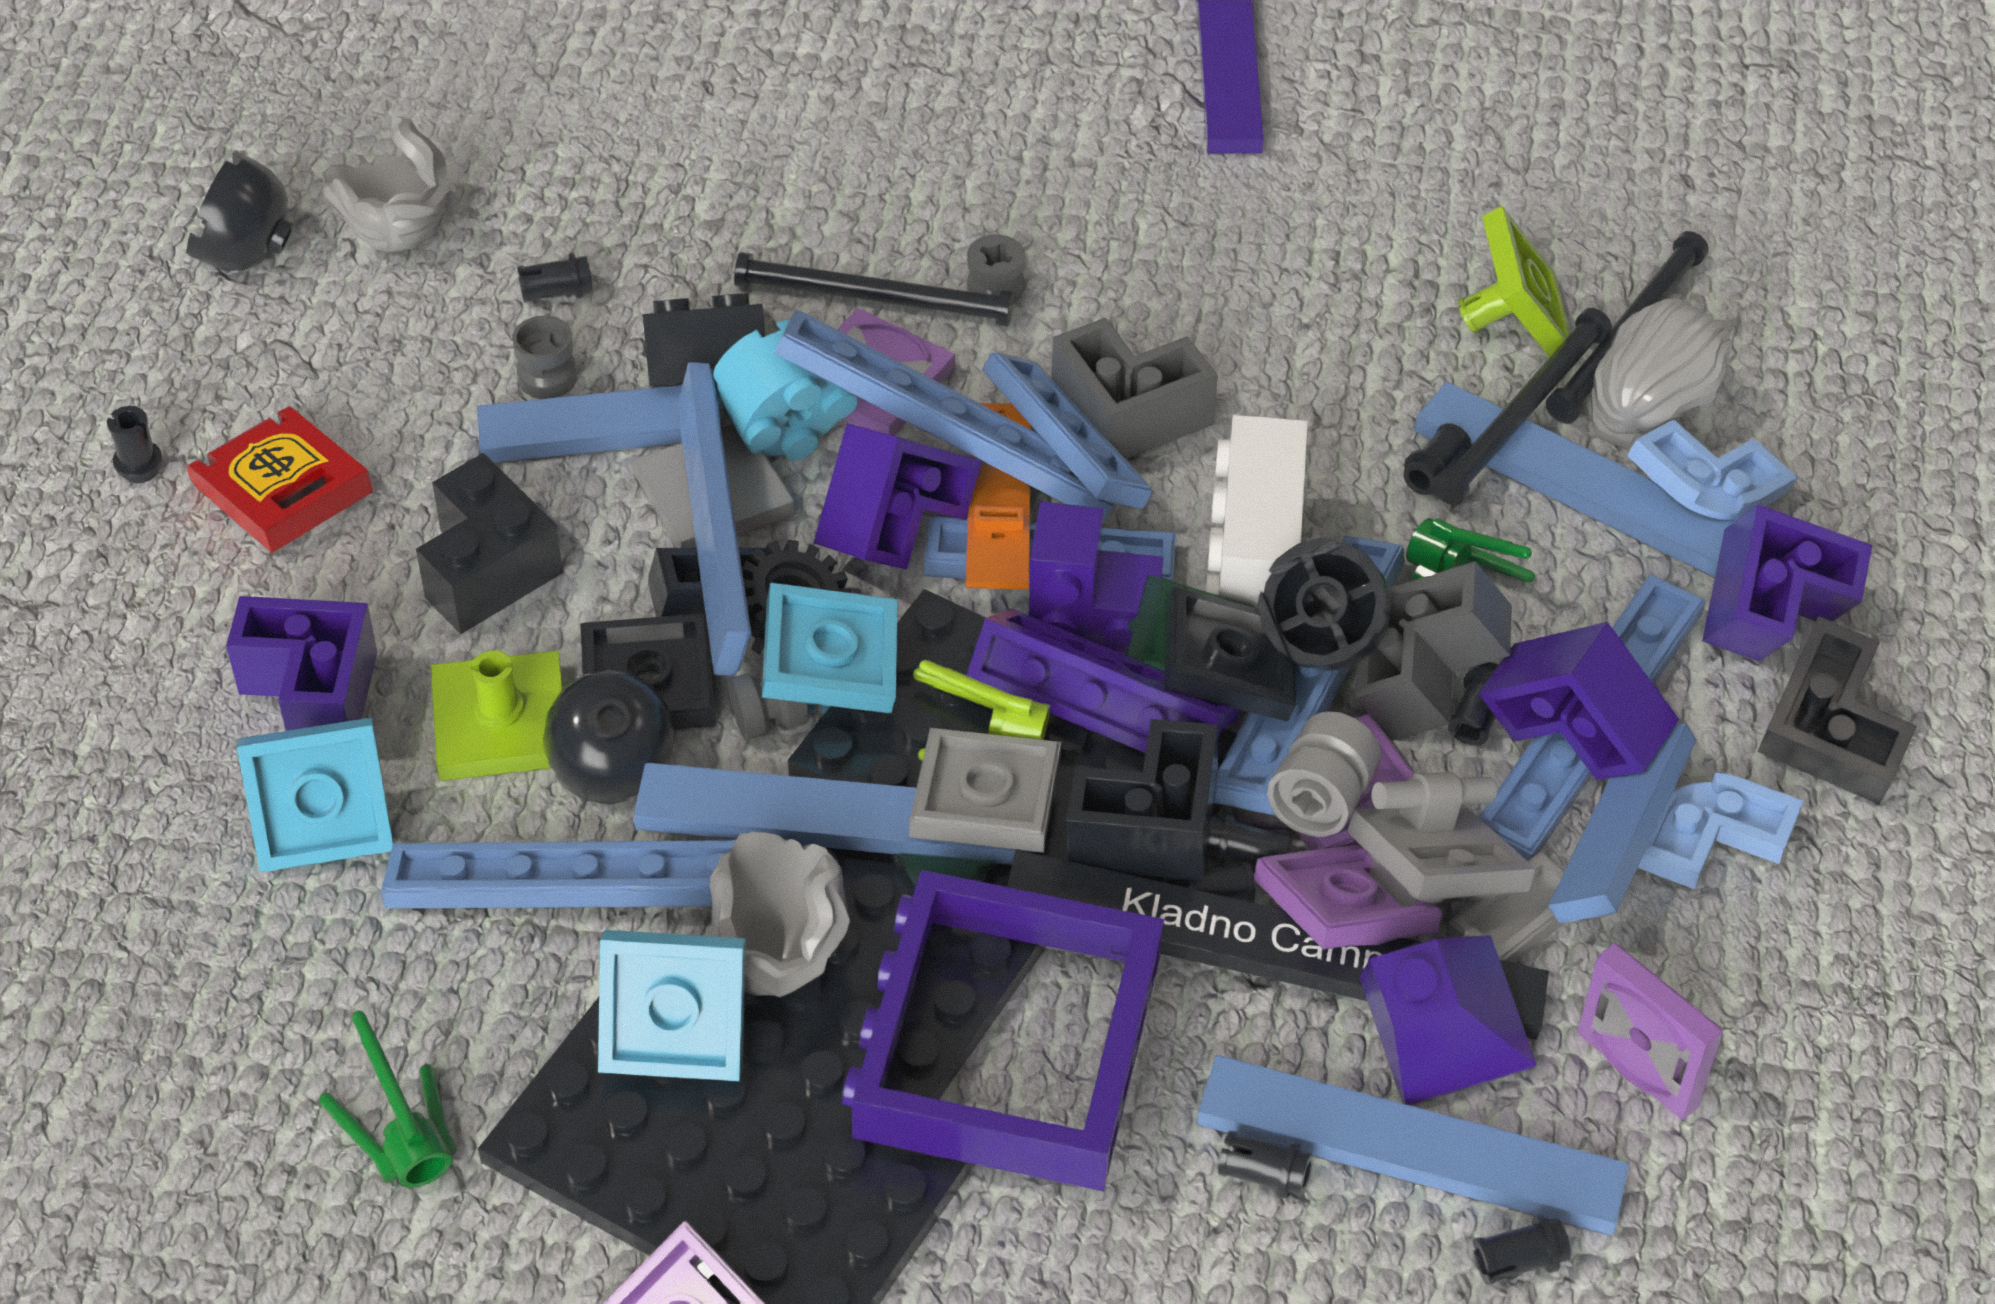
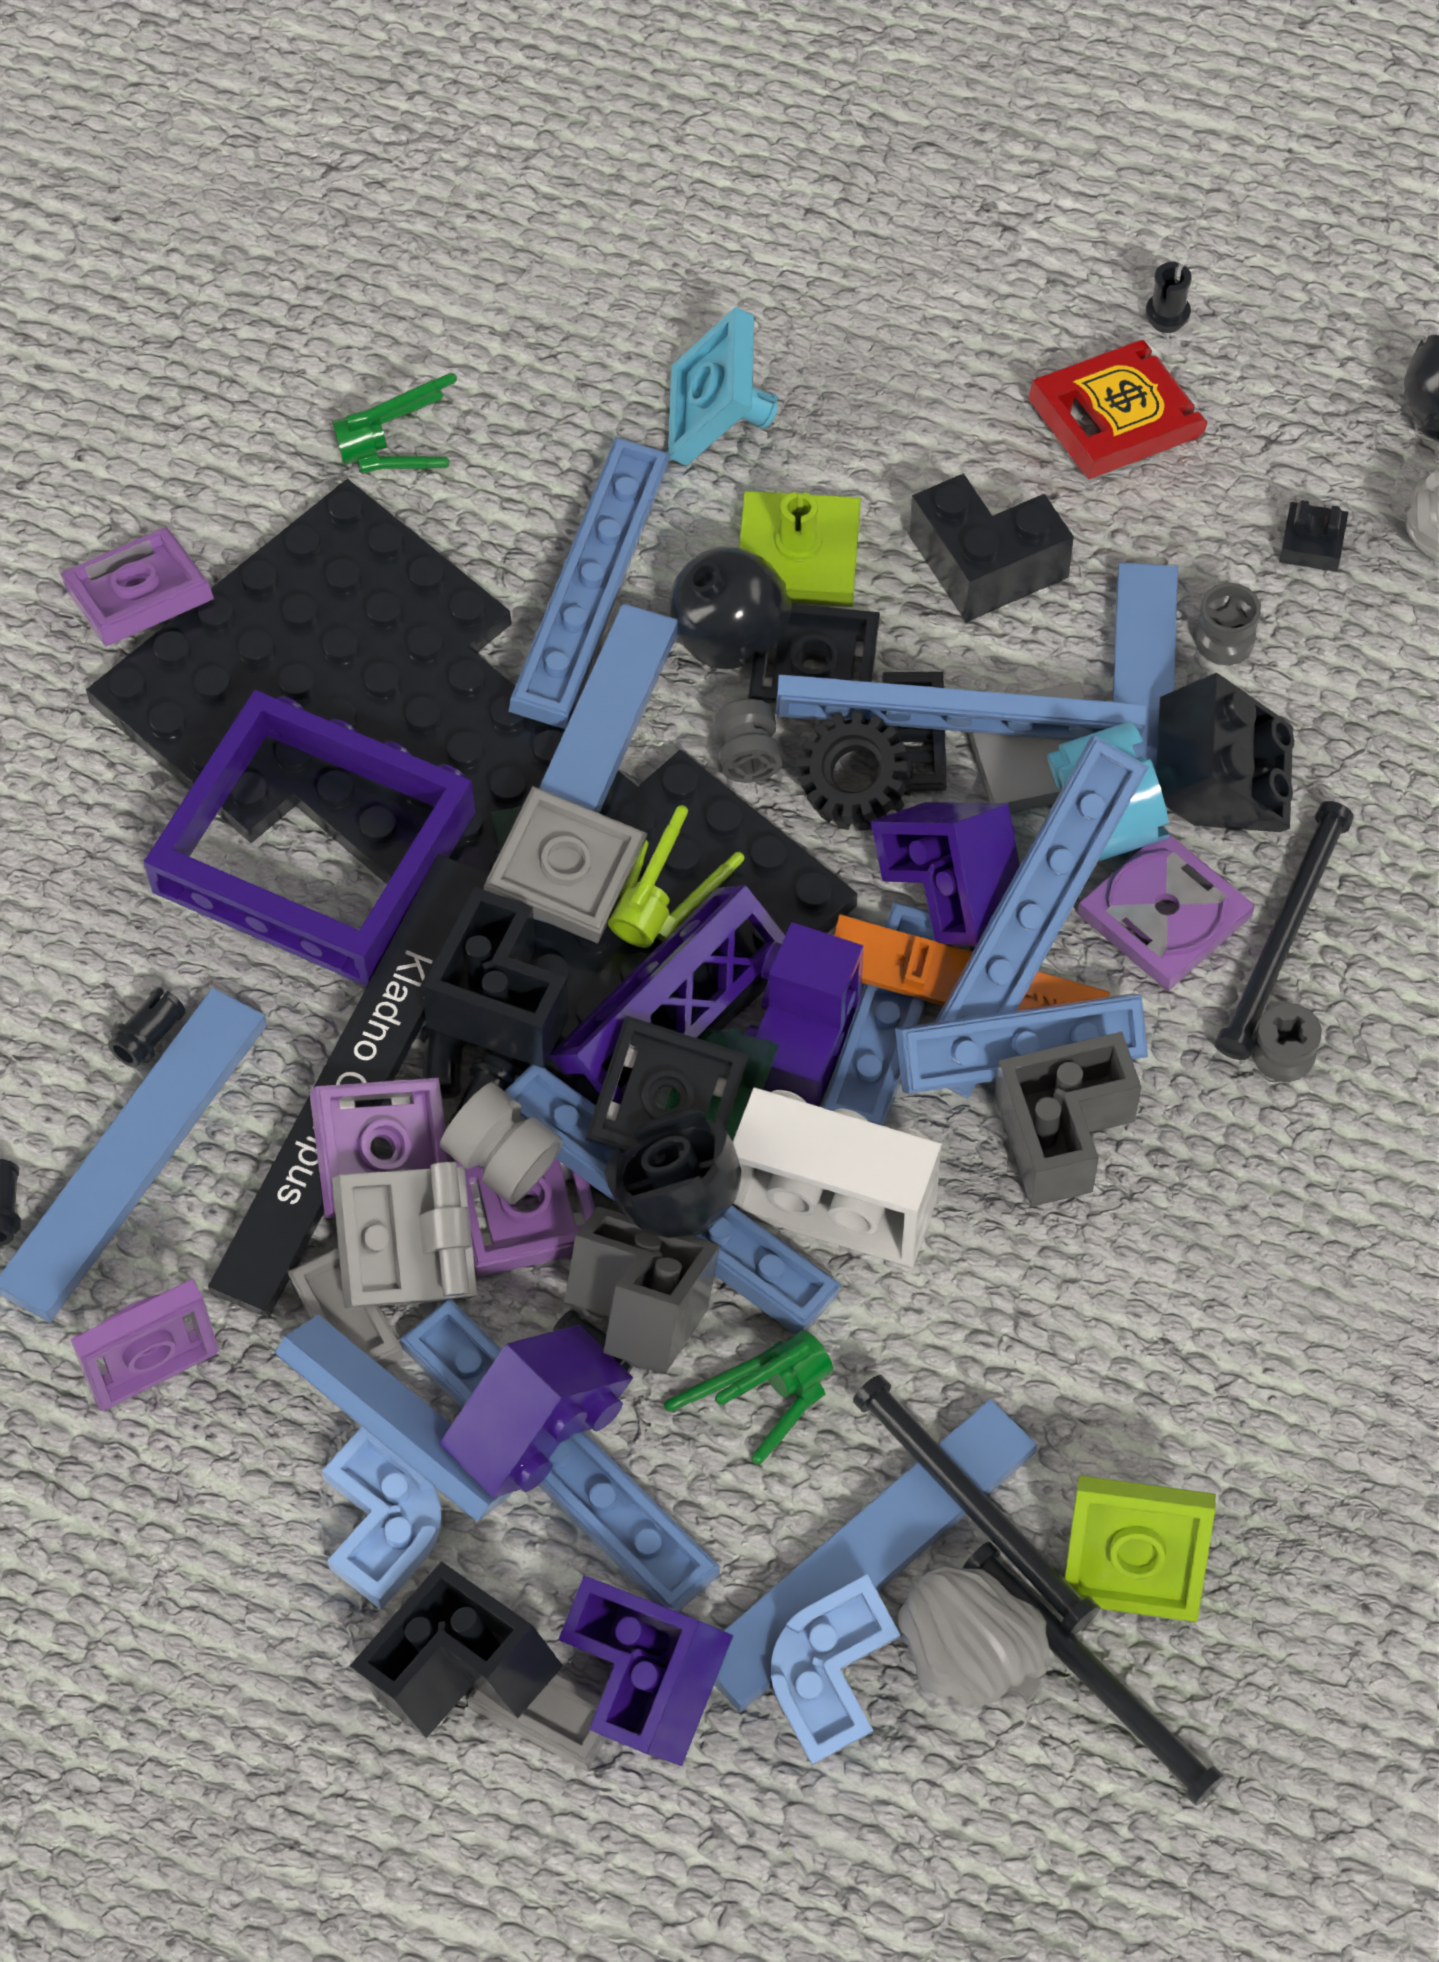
camera: 105 degrees right, 10 degrees up
(306, 654) = (863, 407): dark purple brick -> none
(416, 318) = (1314, 536): none -> black tile
(555, 278) = (1346, 663): black pin -> none
(671, 1005) = (397, 588): medium azure tile -> none
(784, 904) = (464, 673): light grey hair -> none
(830, 648) = (762, 771): medium azure tile -> none
(1438, 454) = (926, 1401): black pin -> none
(1445, 1017) = (232, 1189): dark purple slope -> none

